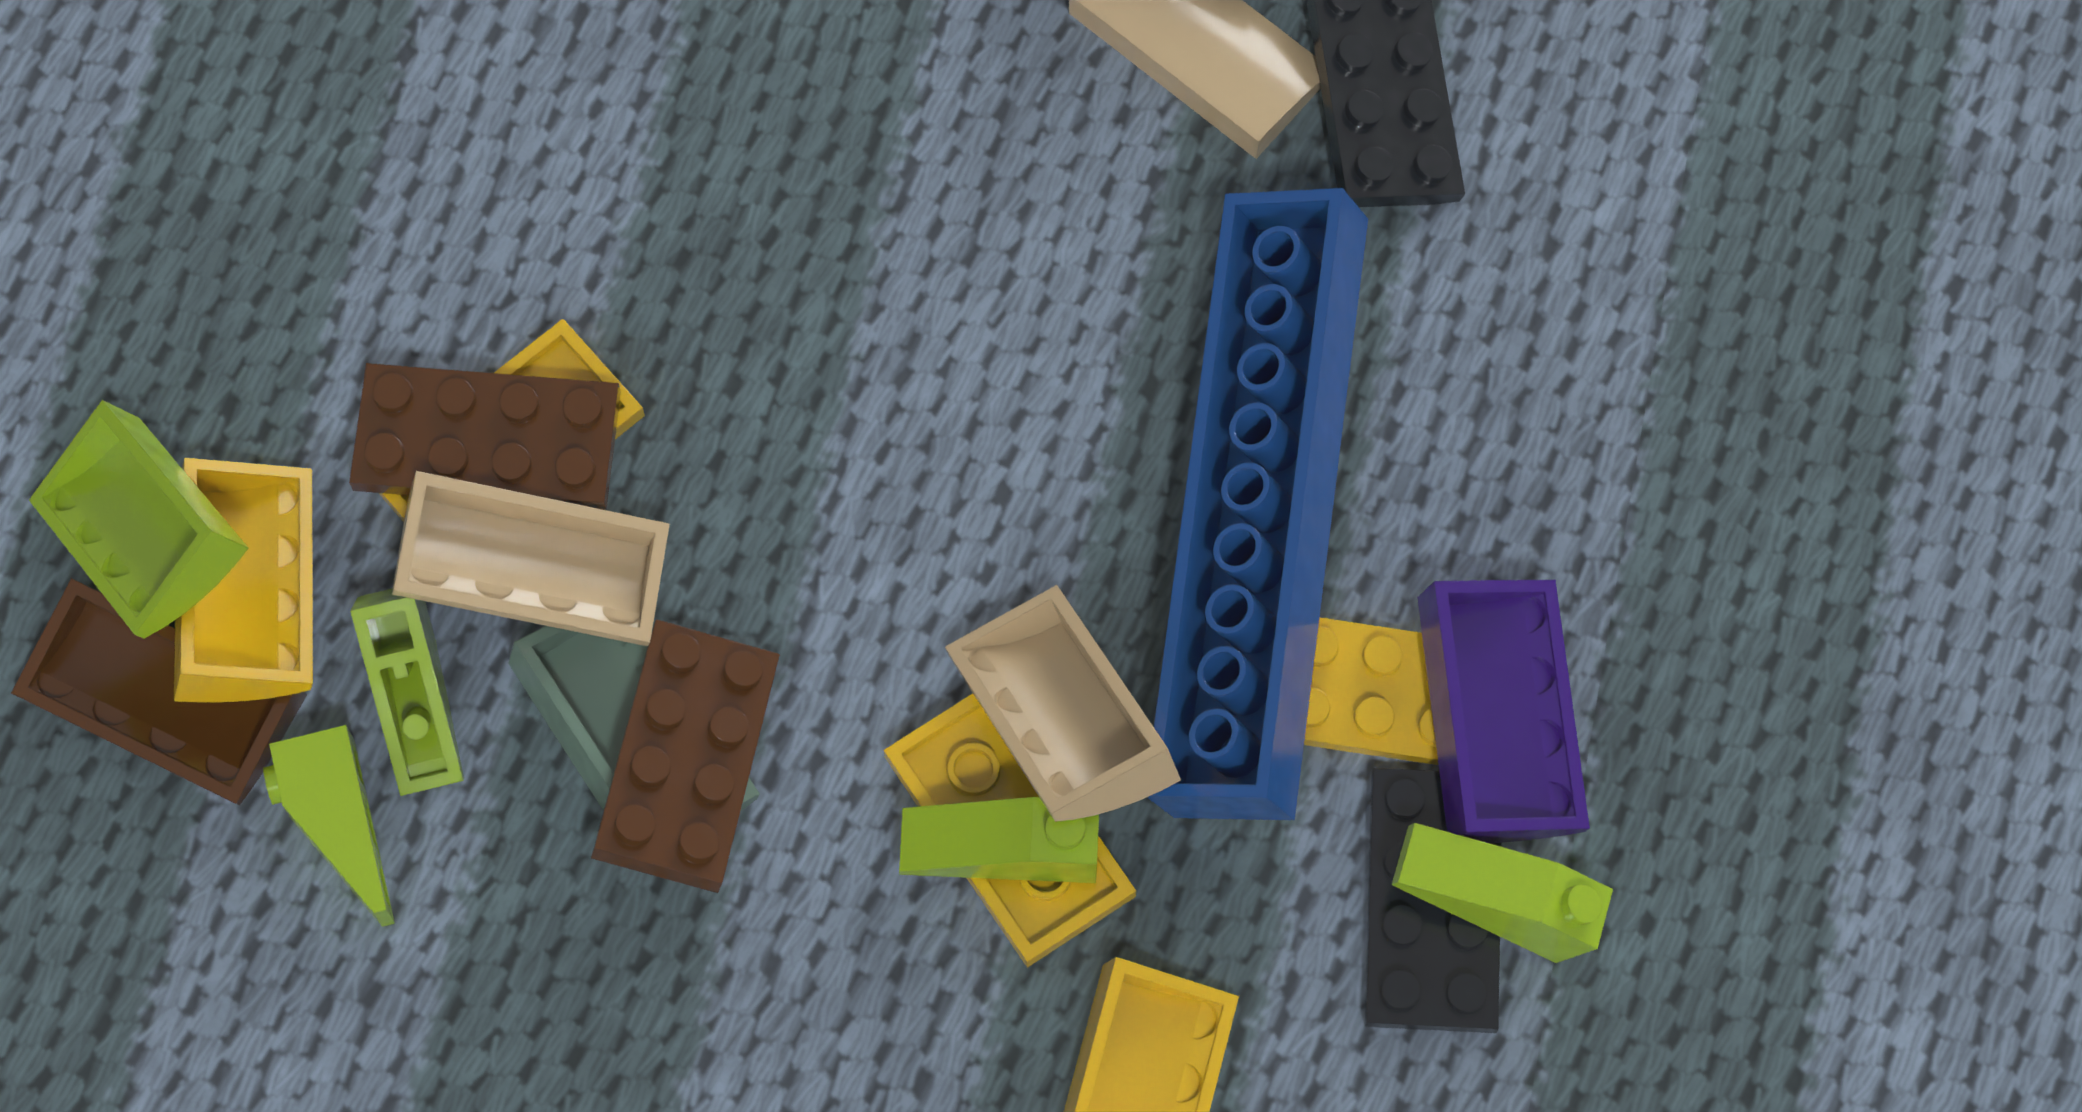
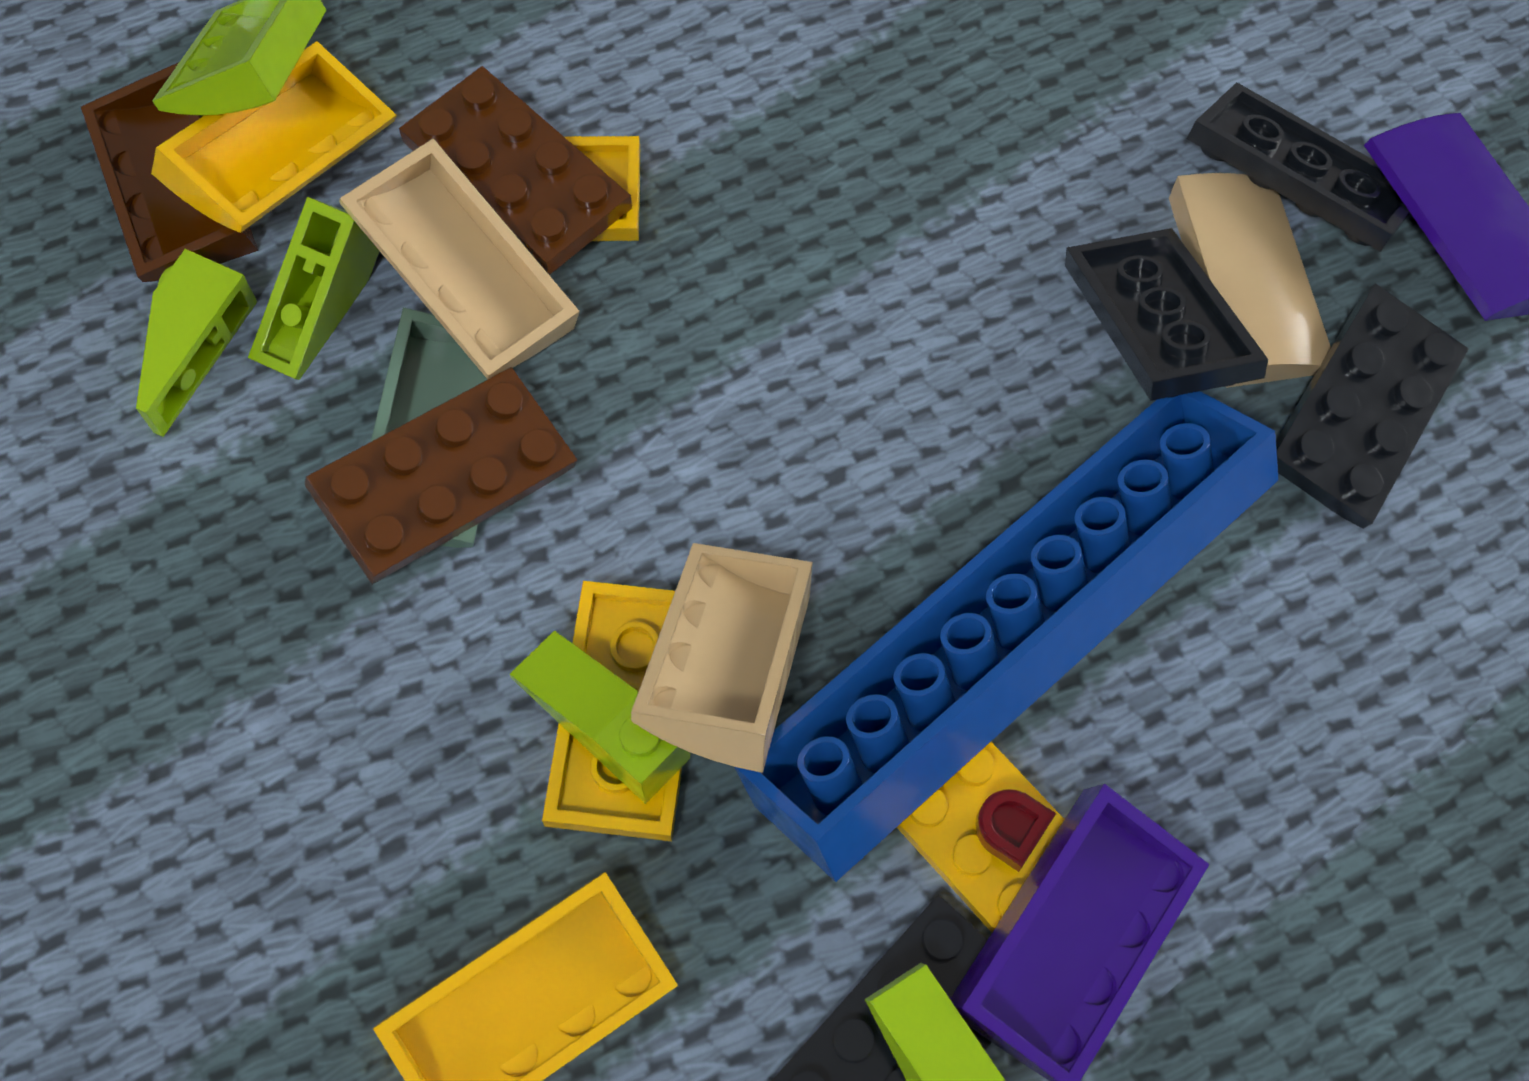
camera: 40 degrees right, 5 degrees down
(1161, 139) = (1164, 314): none -> black plate
(1388, 669) = (1012, 825): none -> dark red tile

